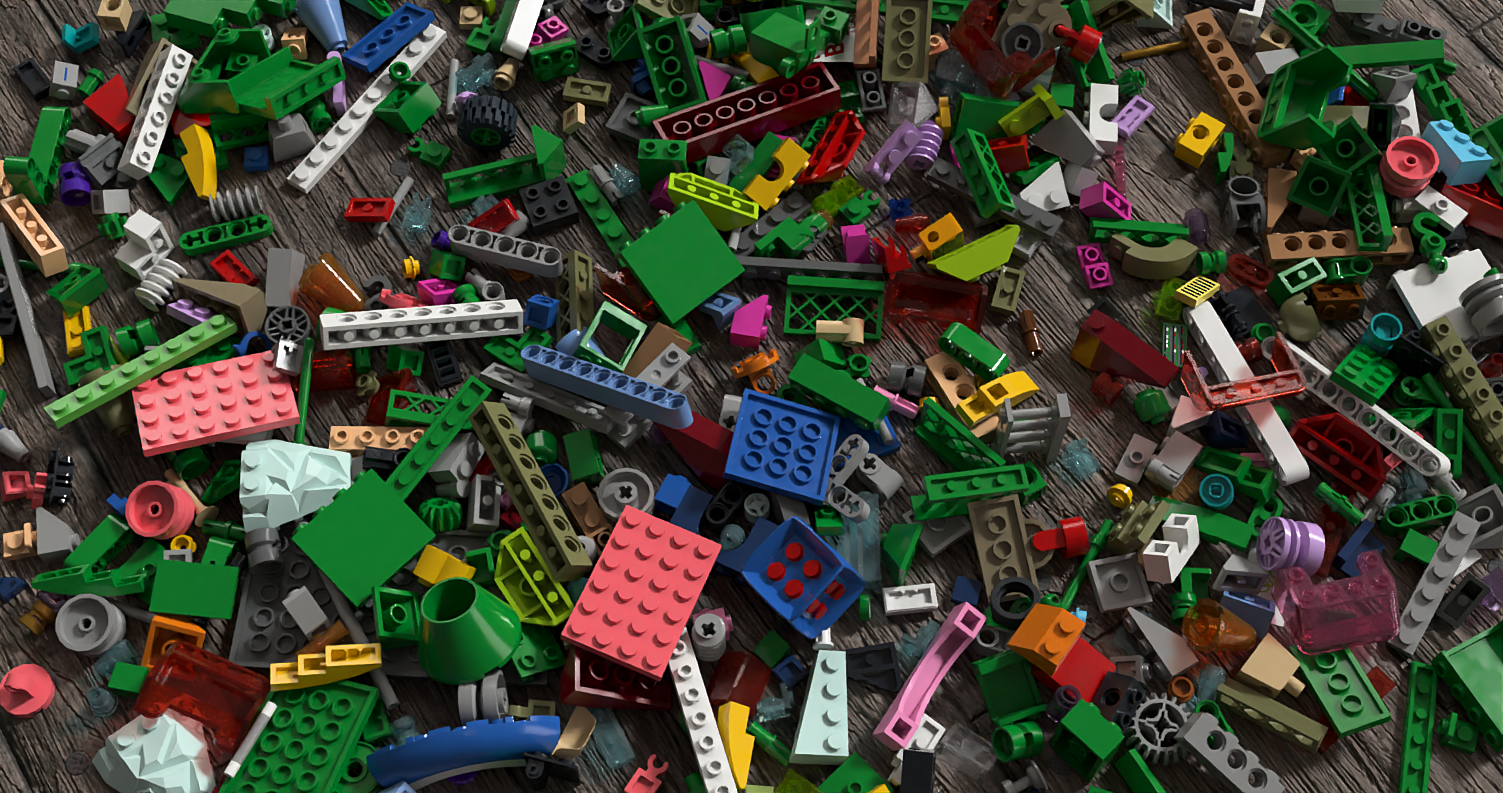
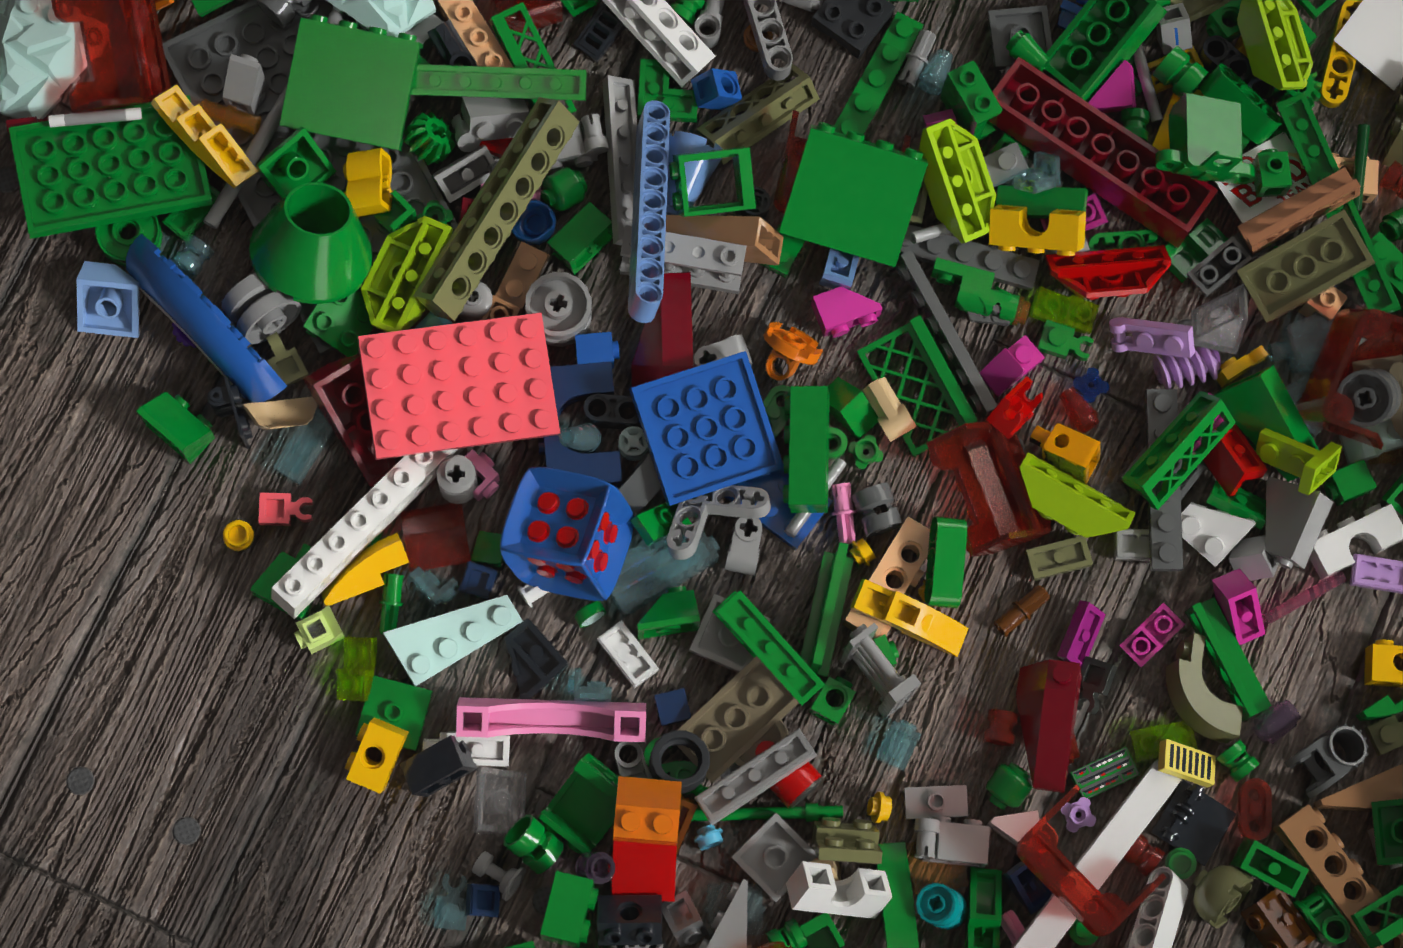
camera: 50 degrees right, 15 degrees up
(1057, 555) = (755, 776): none -> light grey tile
(1071, 307) = (1081, 633): none -> magenta plate

